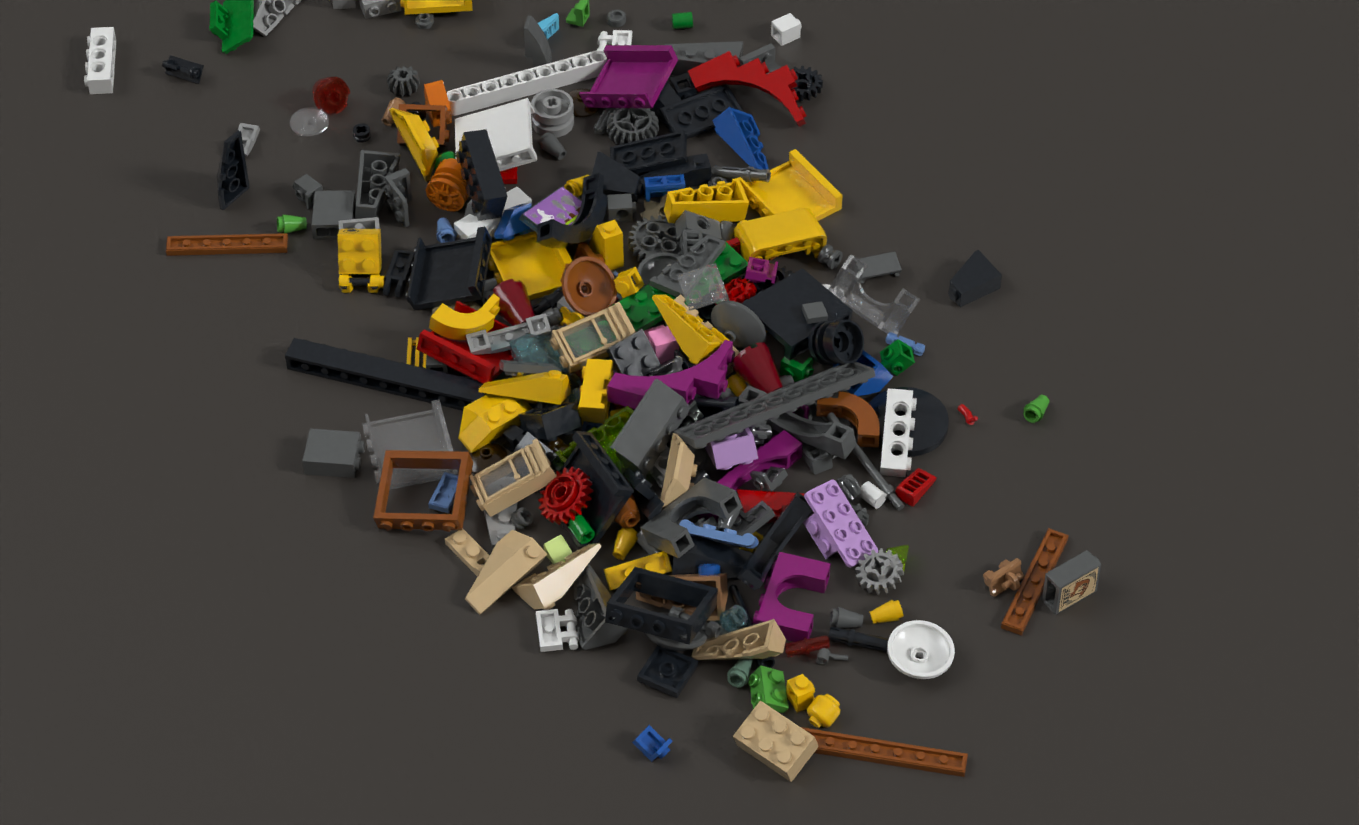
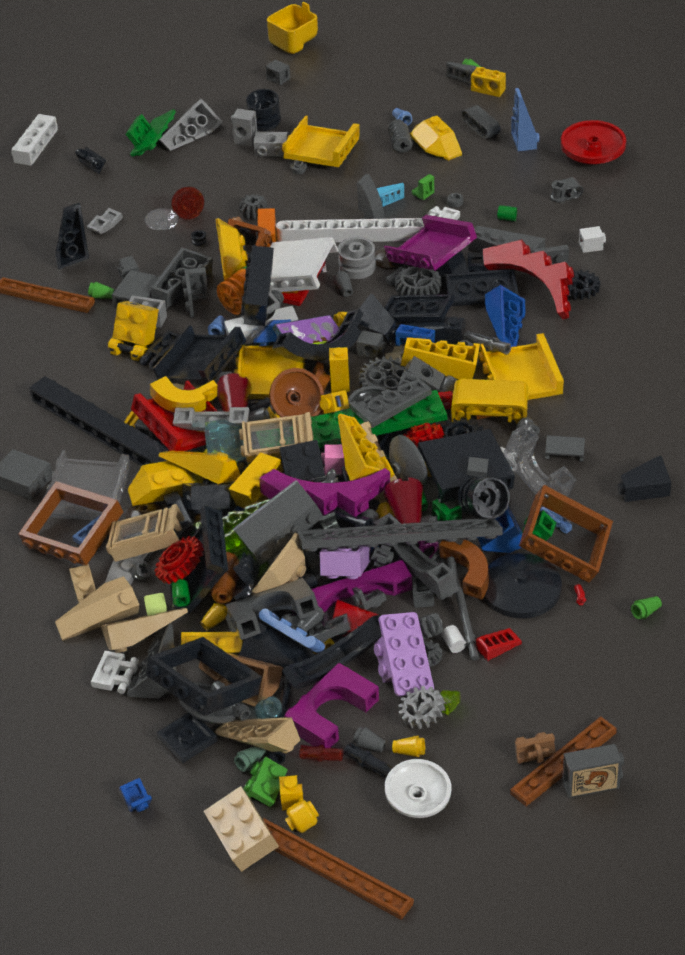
camera: 25 degrees right, 5 degrees down
(513, 367) = (197, 443): dark grey plate -> none
(702, 287) = (390, 419): clear bracket -> none
(708, 569) = (268, 659): blue tile -> none
(760, 270) = (453, 420): magenta plate -> none
(825, 655) = (332, 767): dark grey hand -> none
(904, 401) = (509, 562): white brick -> none
(934, 334) = (576, 513): none -> dark orange window

